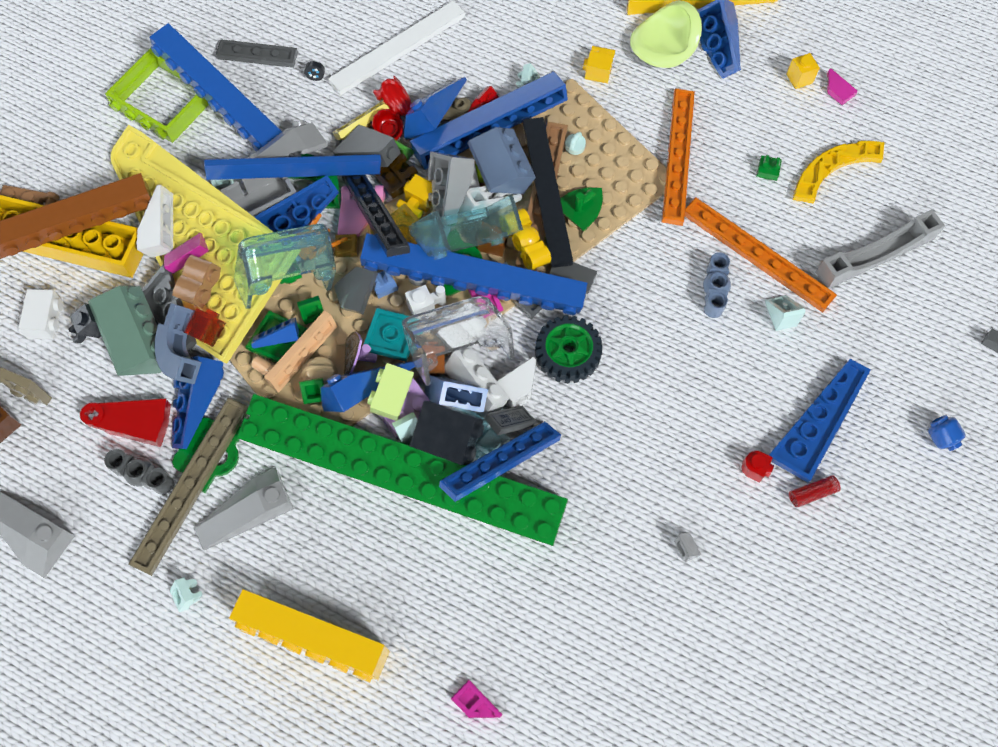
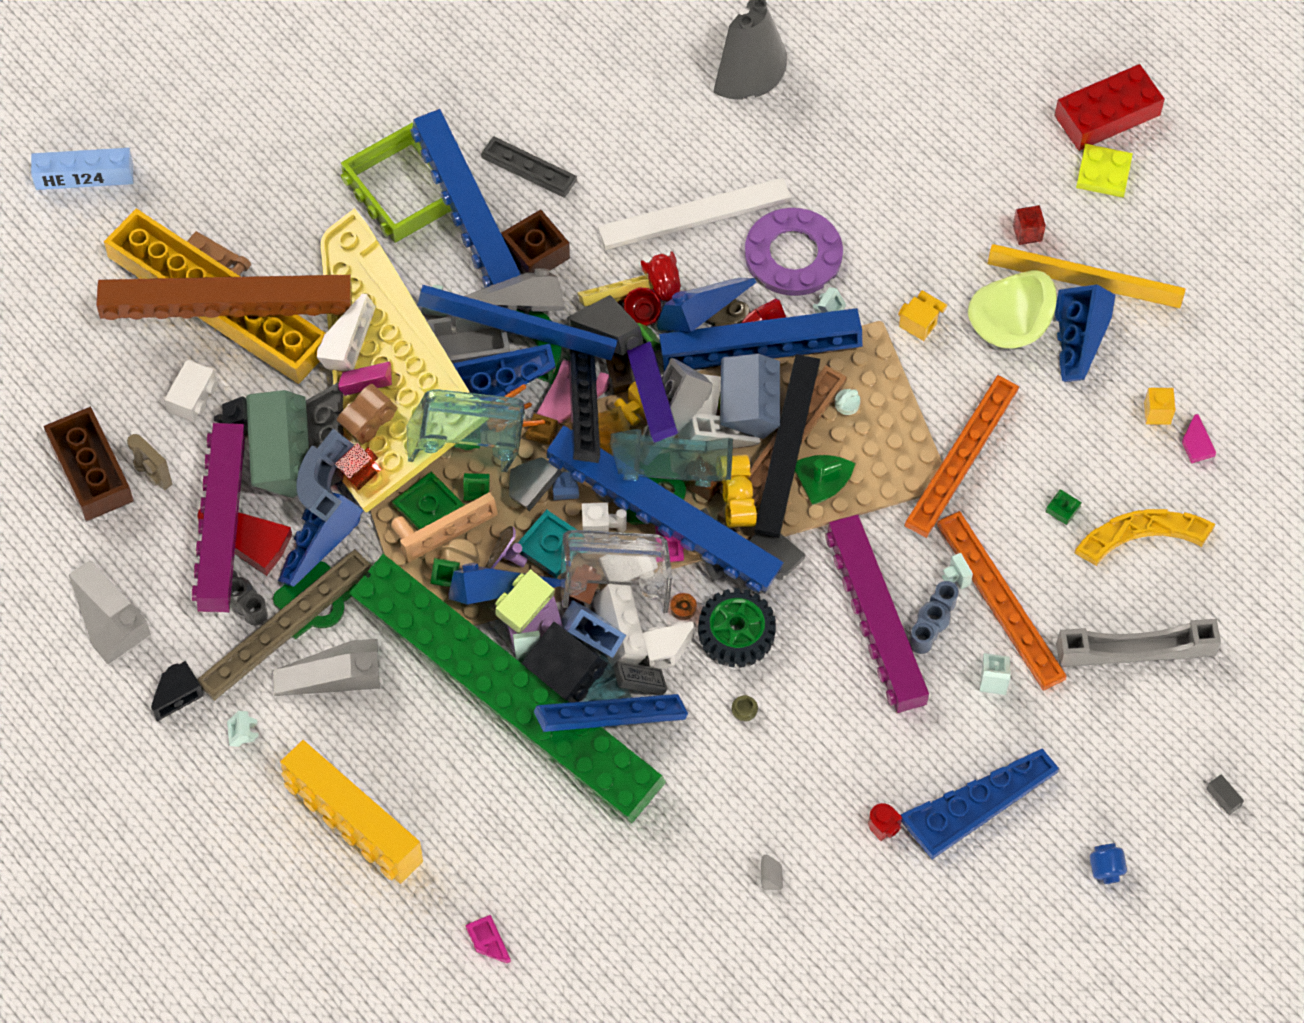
camera: 20 degrees right, 5 degrees down
(100, 416) = (220, 518): none -> magenta brick
(112, 581) = (175, 690): none -> black slope
(281, 333) = (436, 501): blue slope -> none
(285, 104) = (536, 243): none -> reddish brown brick
(314, 71) = (586, 211): black tile -> none
(427, 184) = (652, 392): none -> dark purple tile
(483, 72) = (786, 280): none -> medium lavender plate
(521, 347) = (683, 606): none -> clear orange tile
(603, 413) = (744, 708): none -> olive plate
(673, 298) = (877, 614): none -> magenta brick
(718, 242) = (958, 571): none -> light aqua tile
(807, 489) = (933, 871): red piece -> none

